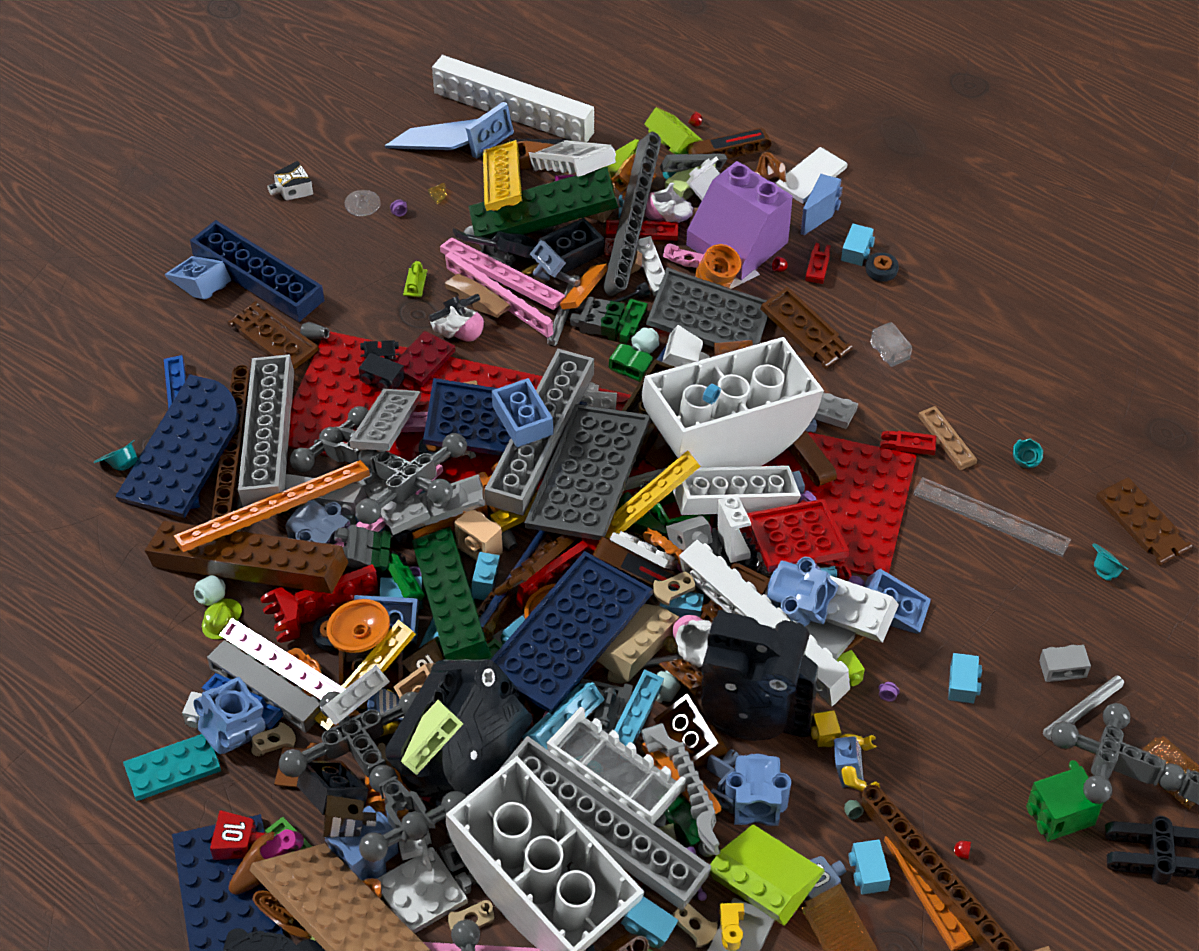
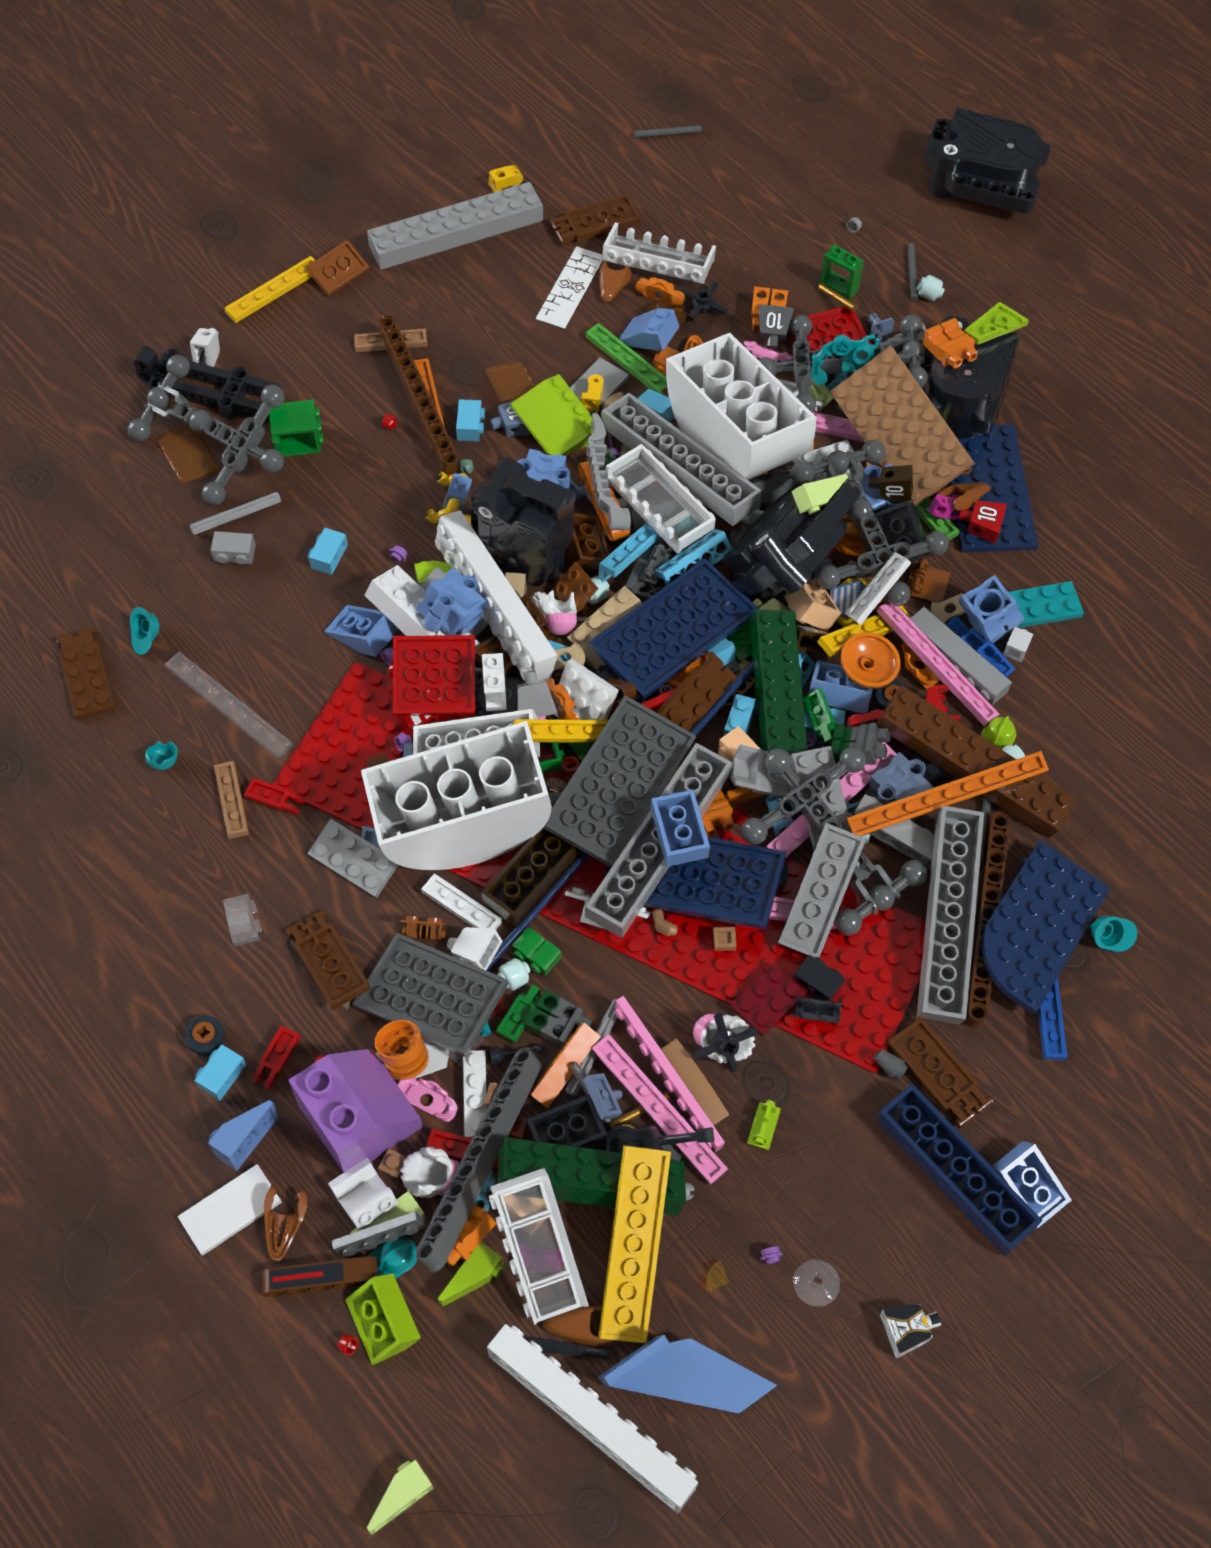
camera: 170 degrees left, 10 degrees up
(629, 57) = (404, 1490): none -> yellowish green slope
(711, 394) = (485, 755): dark azure tile -> none

